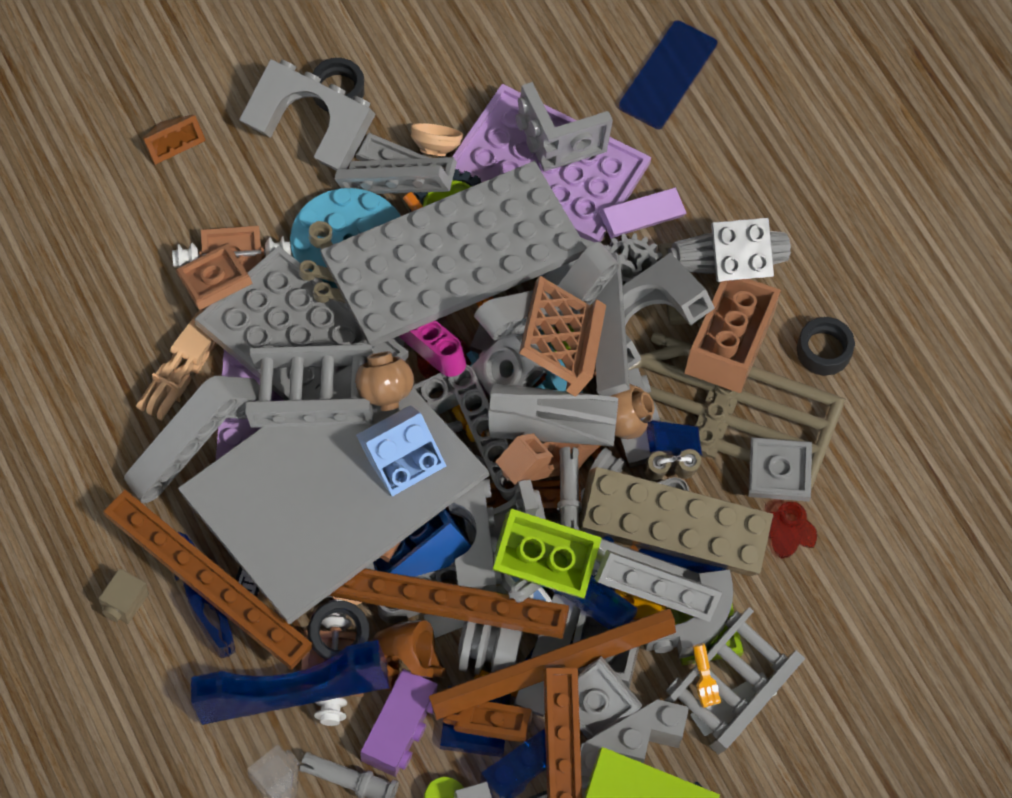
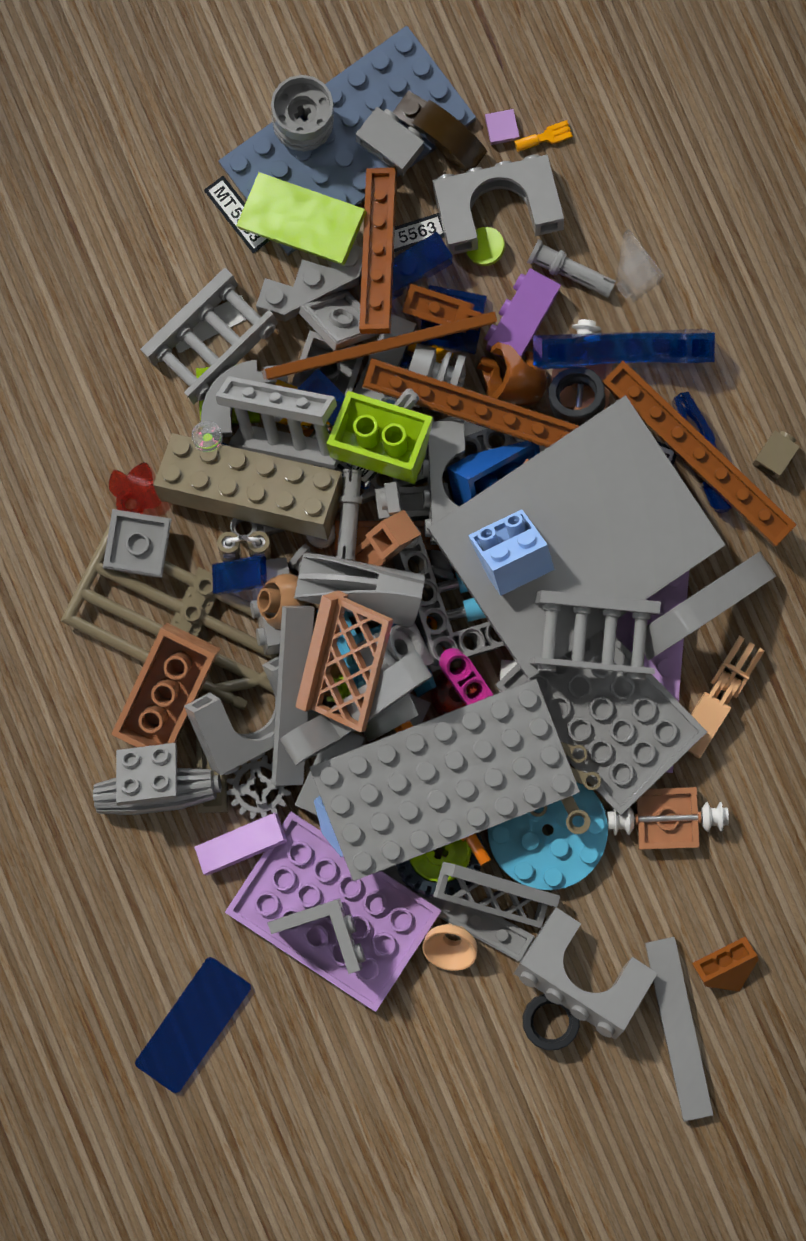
camera: 170 degrees left, 20 degrees up
(213, 276) = (687, 782): nougat tile -> none
(217, 88) = (679, 1029): none -> light grey tile
(384, 380) = (524, 622): medium nougat plant -> none
(706, 686) = (237, 323): light orange piece -> none
(724, 562) = (207, 436): none -> clear tile
(828, 326) = (48, 683): black tyre -> none

